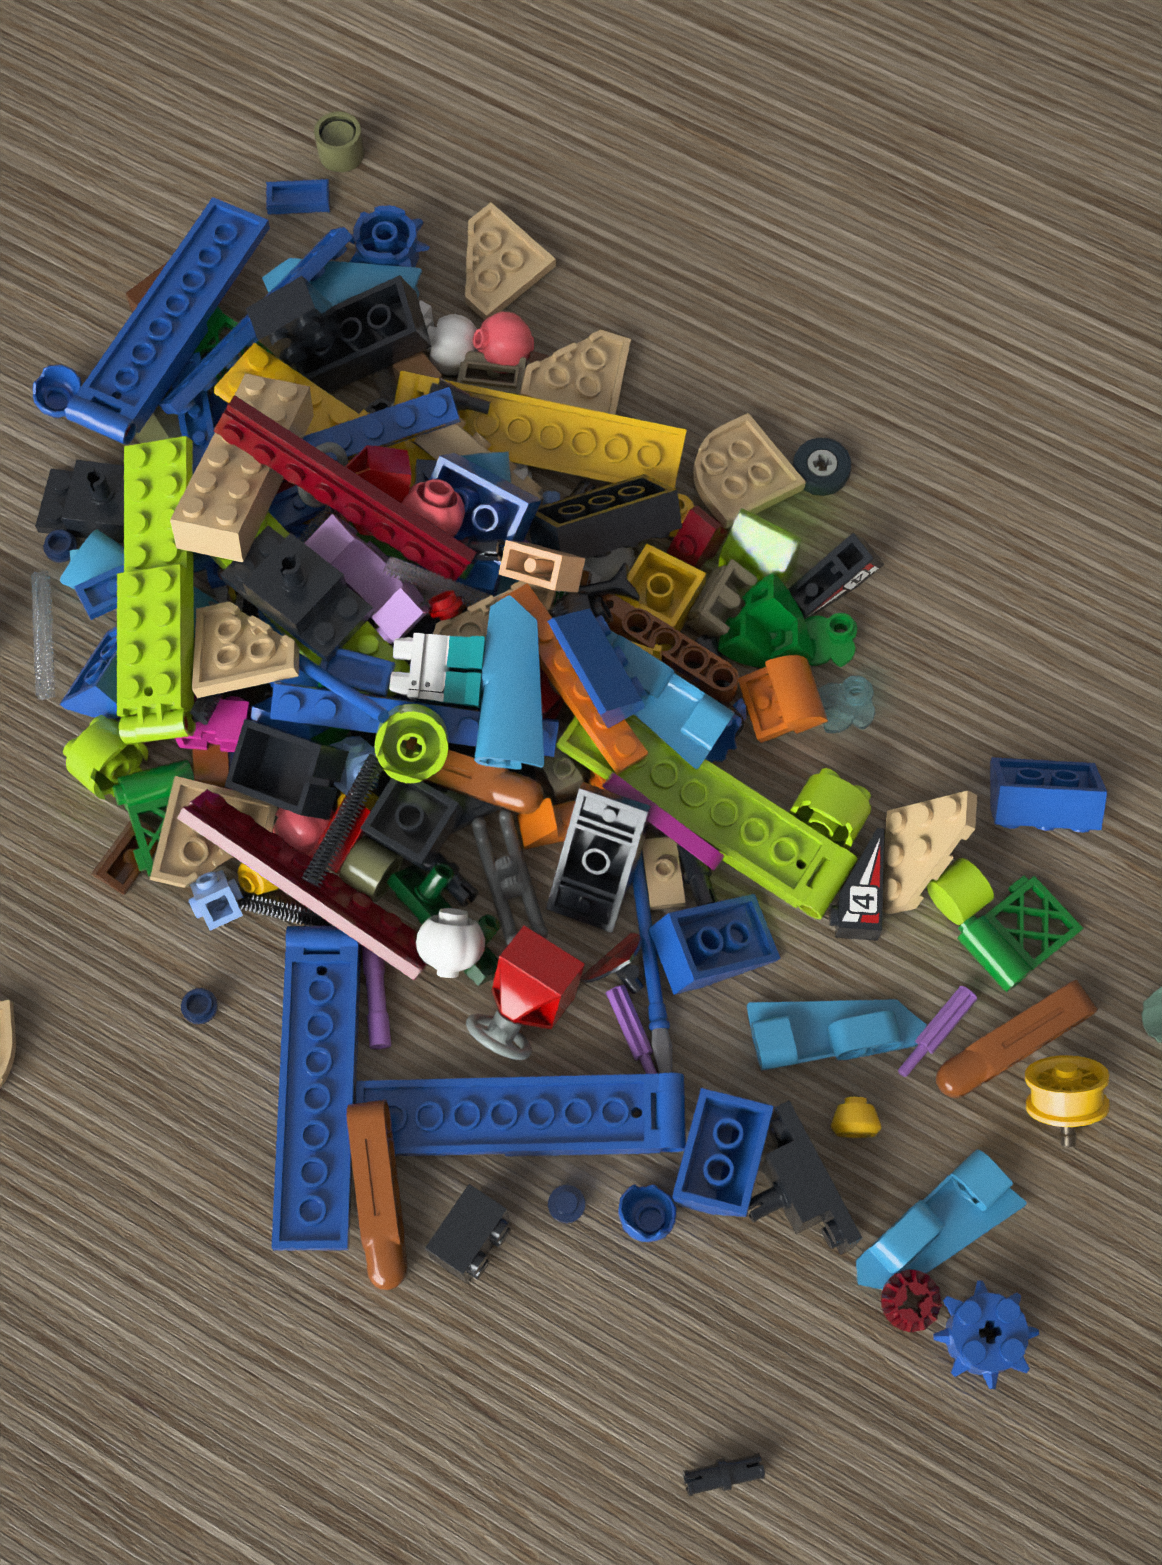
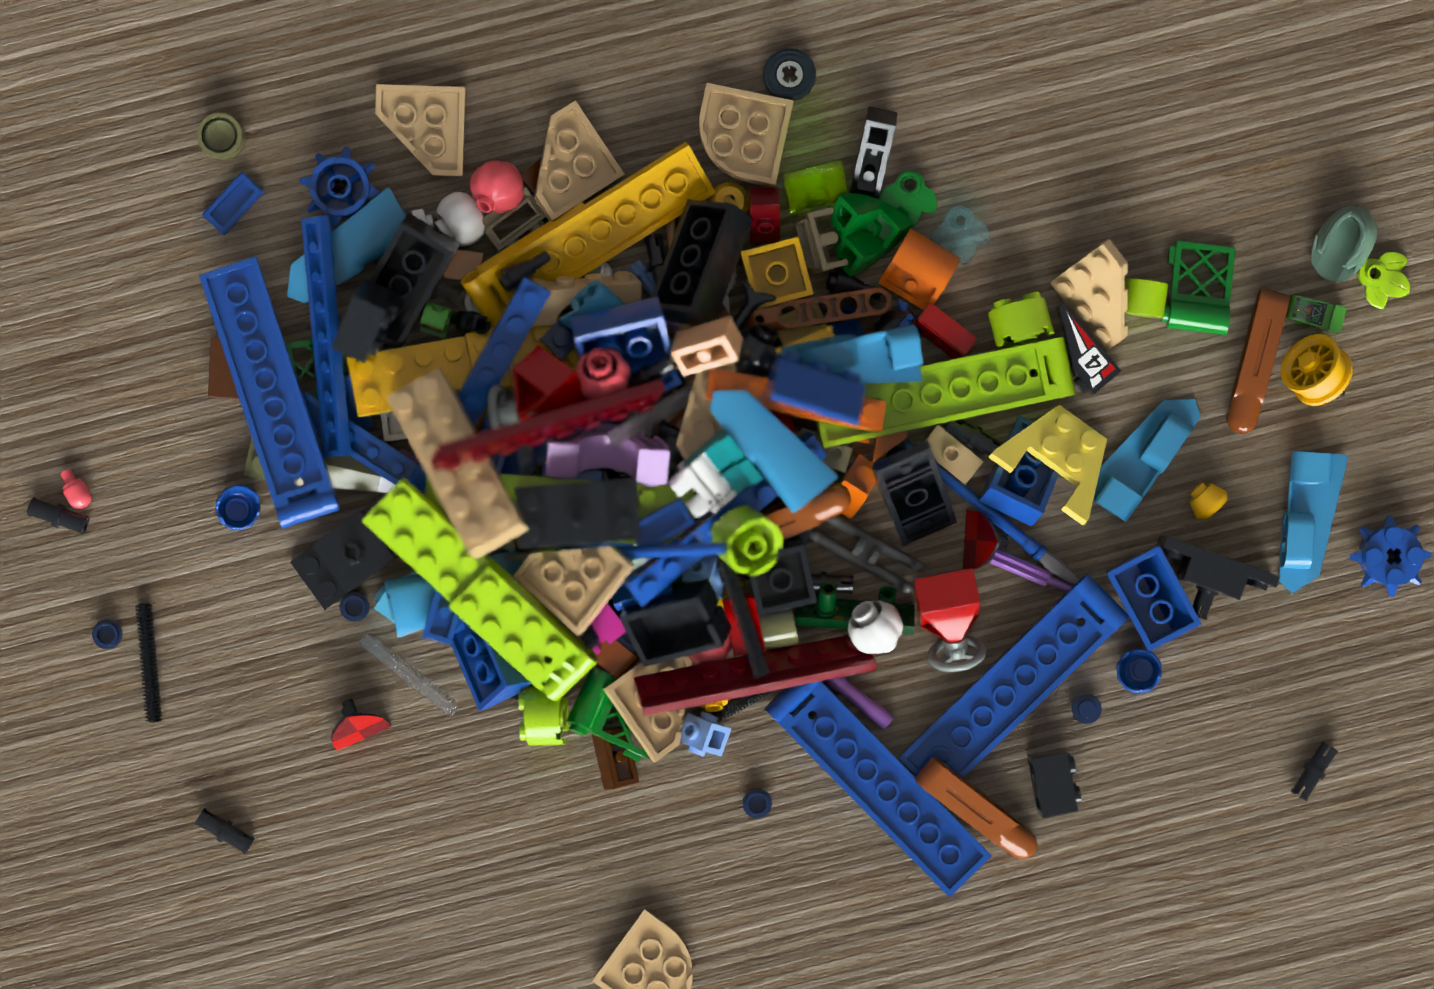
camera: 45 degrees left, 20 degrees up
(356, 387) = (436, 320): none -> bright green leg
(445, 605) = (670, 428): red plate -> none
(667, 823) = (935, 434): magenta beam -> none
(756, 762) = (944, 332): none -> red slope
(768, 949) = (1067, 448): none -> light yellow wing
(895, 1294) = (1320, 582): dark red gear -> none
(940, 1027) = (1205, 394): medium lavender axle -> none
(1046, 794) = (1137, 178): blue slope -> none
(1107, 1047) = (1316, 314): none -> leg

